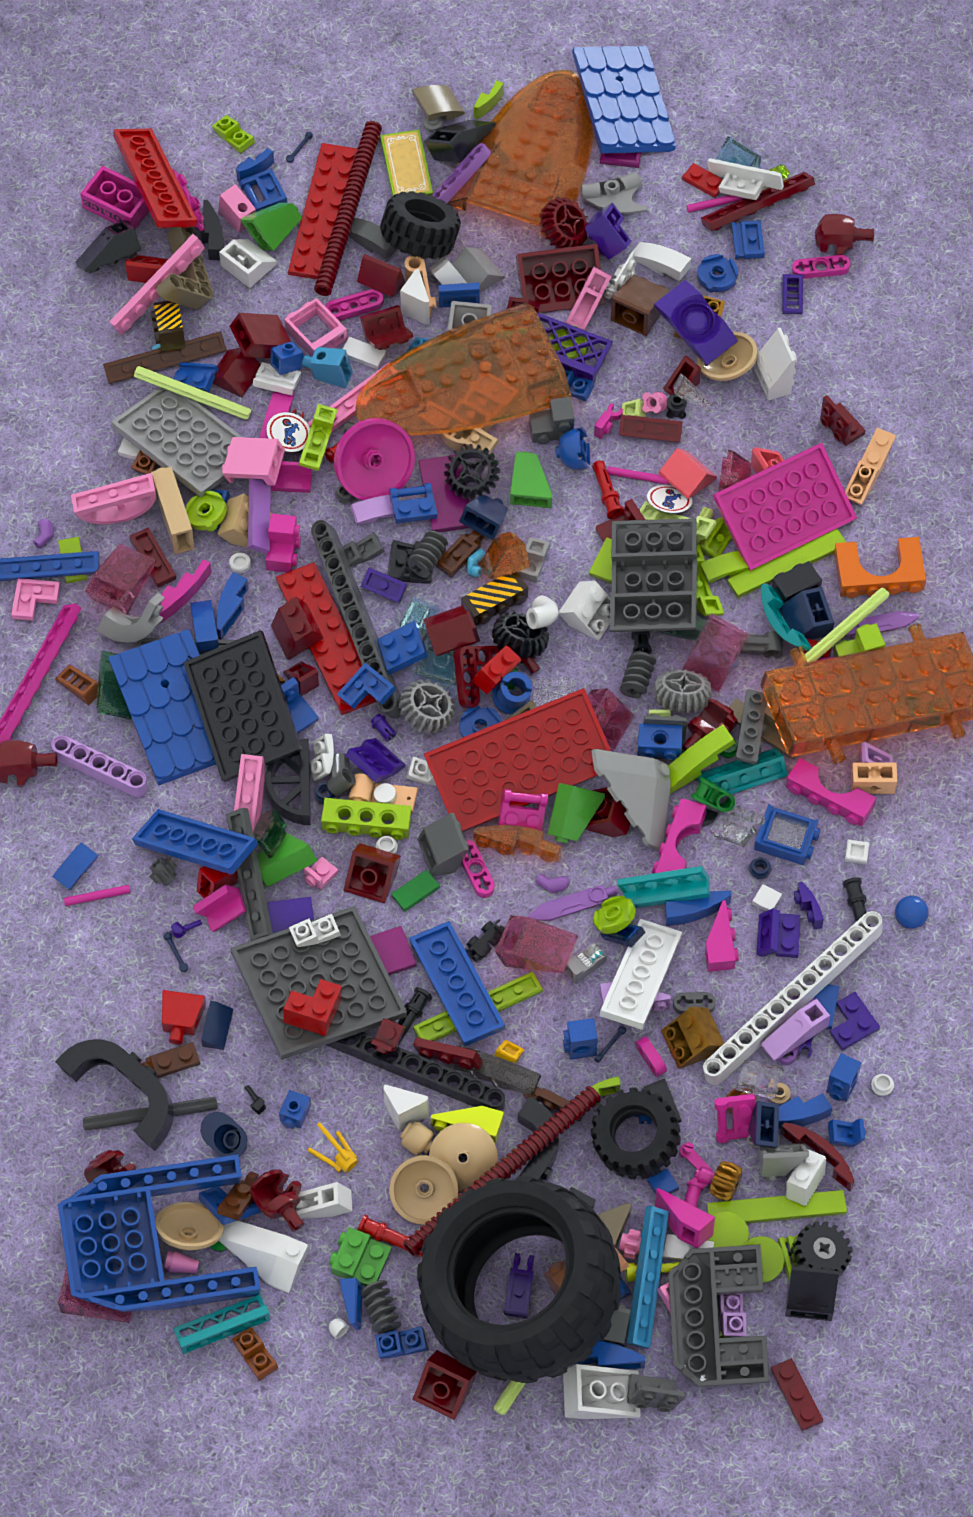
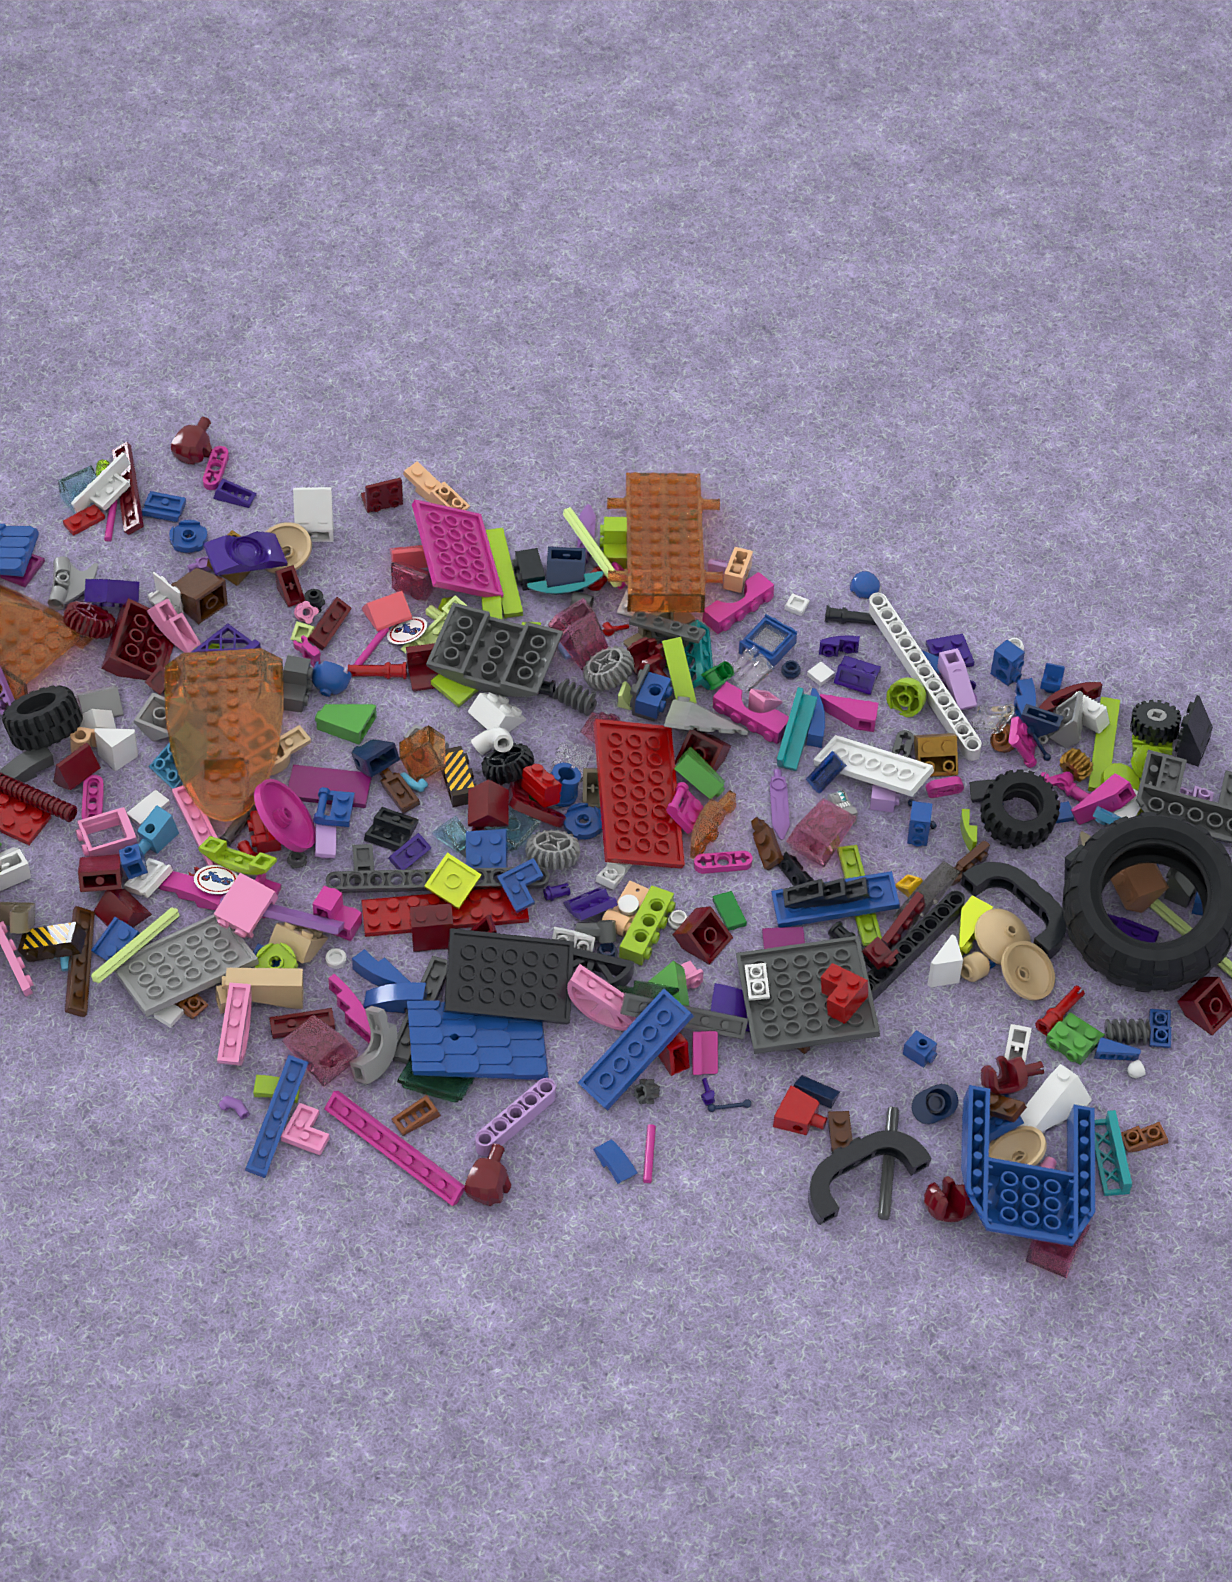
camera: 75 degrees left, 10 degrees down
(258, 1104) = (903, 1076): black hand -> none
(345, 1158) = (976, 1025): yellow plant -> none
(349, 627) = (452, 881): none -> neon yellow plate
(385, 328) = (135, 784): dark red bracket -> none
(427, 553) = (396, 807): dark grey piece -> none
(443, 845) = (699, 871): dark grey slope -> none
(454, 969) = (825, 894): none -> black slope
(458, 292) = (125, 713): blue plate -> none
(465, 477) = (318, 759): black gear -> none
(512, 900) = (766, 844): none -> reddish brown hinge
(519, 1156) = (1032, 907): dark red piece -> none
(553, 885) = (758, 811): medium lavender arm -> none
(614, 914) = (805, 774): lime tile -> none
(662, 260) = (160, 563): white slope -> none
(689, 392) = (308, 583): clear slope -> none
(702, 851) = (762, 701): none -> bright pink slope
(747, 681) = (610, 630): none -> red hand
(747, 1120) = (1030, 730): none -> dark blue hinge
(762, 986) = (907, 693): none -> lime cylinder
(856, 581) = (537, 531): orange arch -> none

